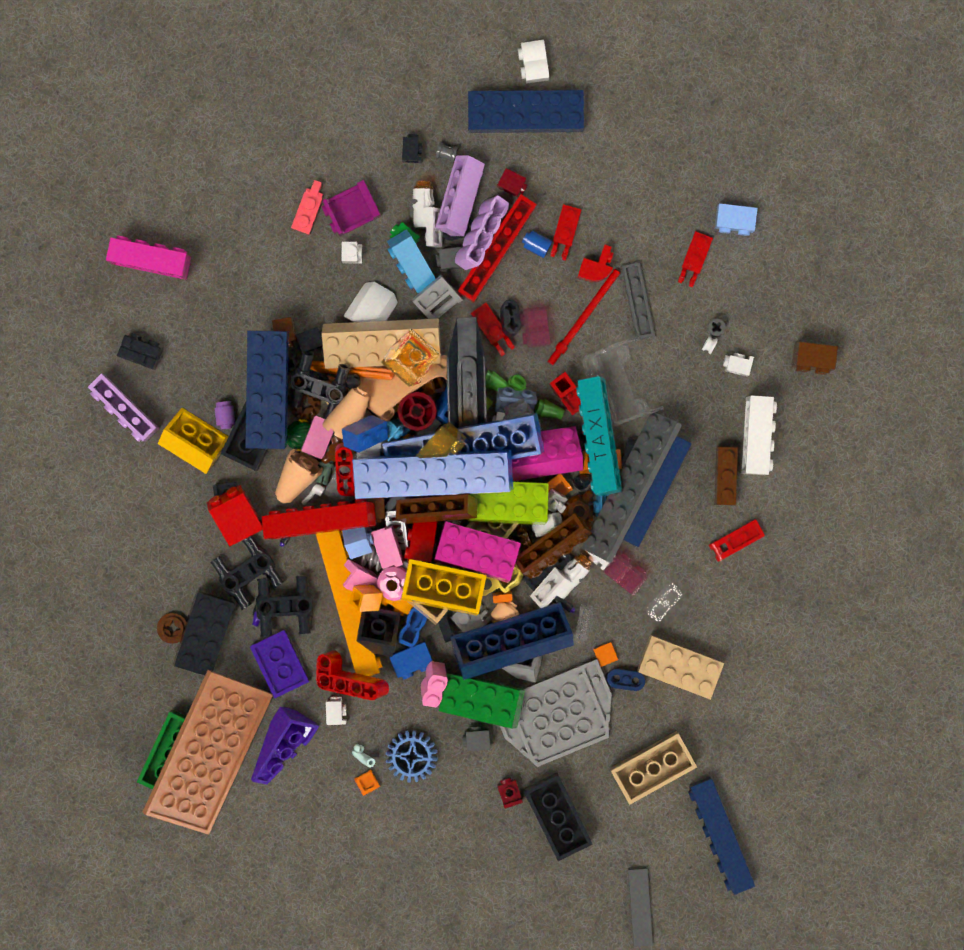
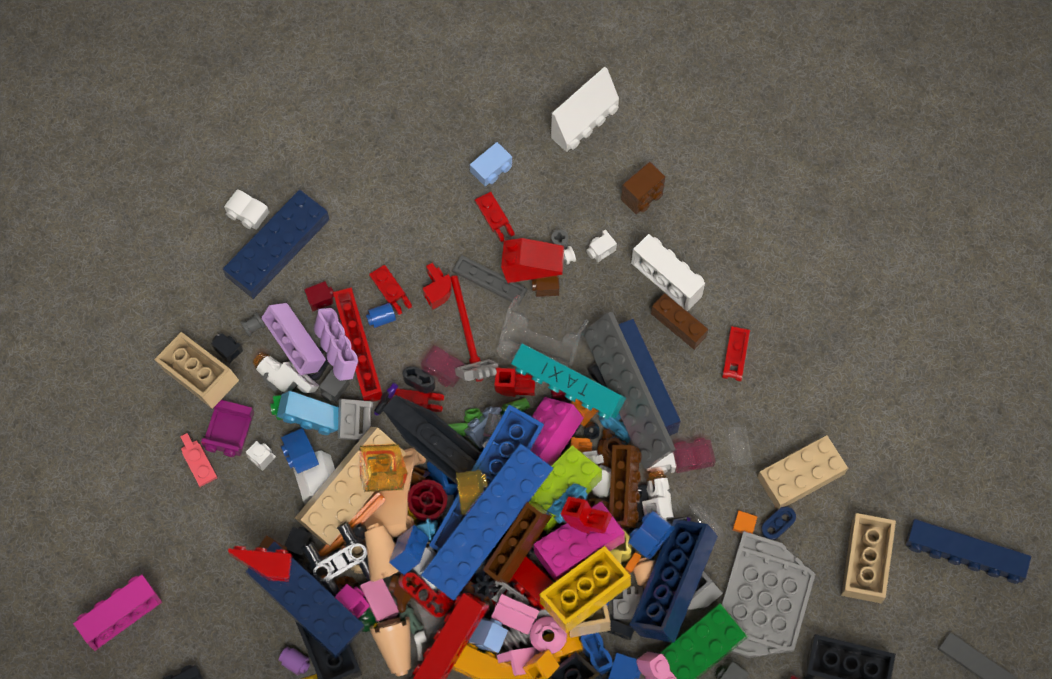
camera: 45 degrees left, 20 degrees down
(263, 346) = (270, 565): none -> red slope
(298, 420) = (353, 600): none -> dark pink brick
(371, 147) = (196, 370): none -> tan brick
(377, 280) = (299, 451): none -> blue brick
(385, 511) = (479, 589): none -> black gear
(479, 306) = (385, 398): none -> black piece
(494, 545) = (584, 518): none -> red brick
(504, 519) = (575, 491): none -> dark azure hinge
(532, 596) = (651, 534): none -> blue brick
(553, 358) = (477, 370): none -> light grey hinge
(670, 348) = (546, 286): none -> reddish brown brick
(678, 322) = (531, 259): none -> red slope
(842, 256) = (584, 111): none -> white slope

